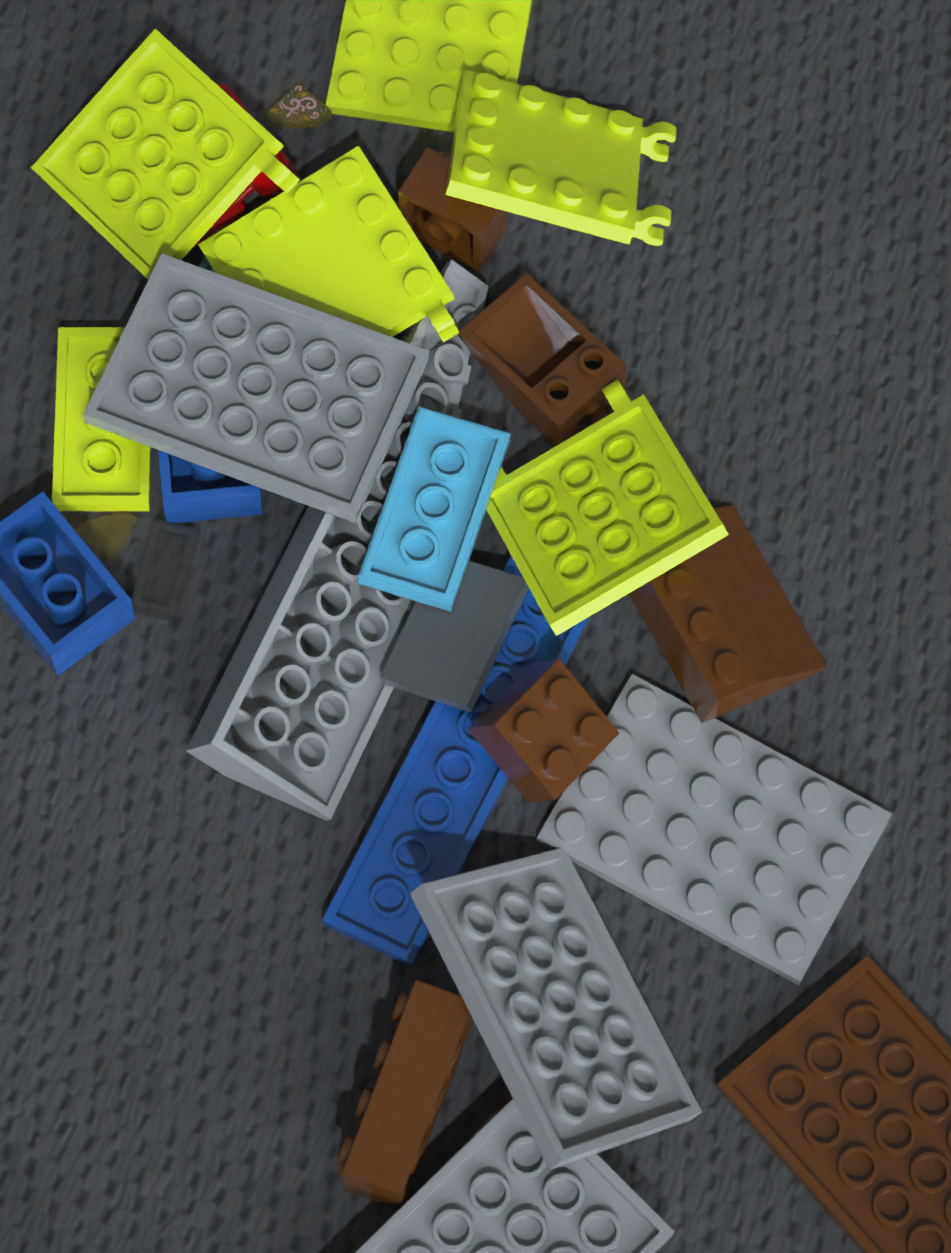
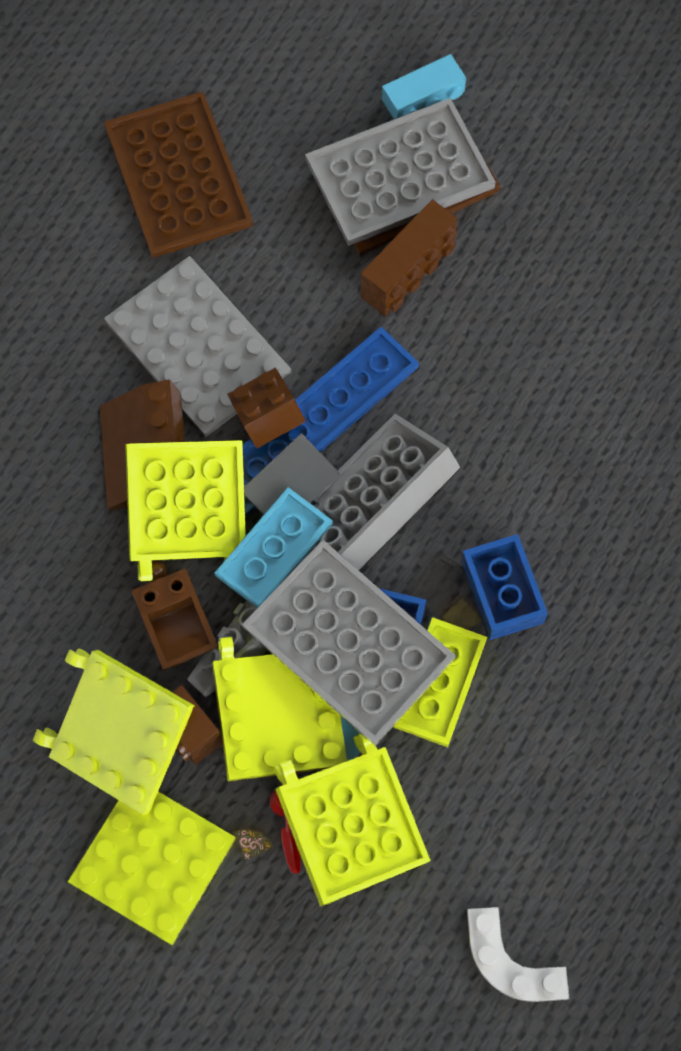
camera: 155 degrees left, 0 degrees up
(555, 1006) = (319, 269): light grey plate -> none

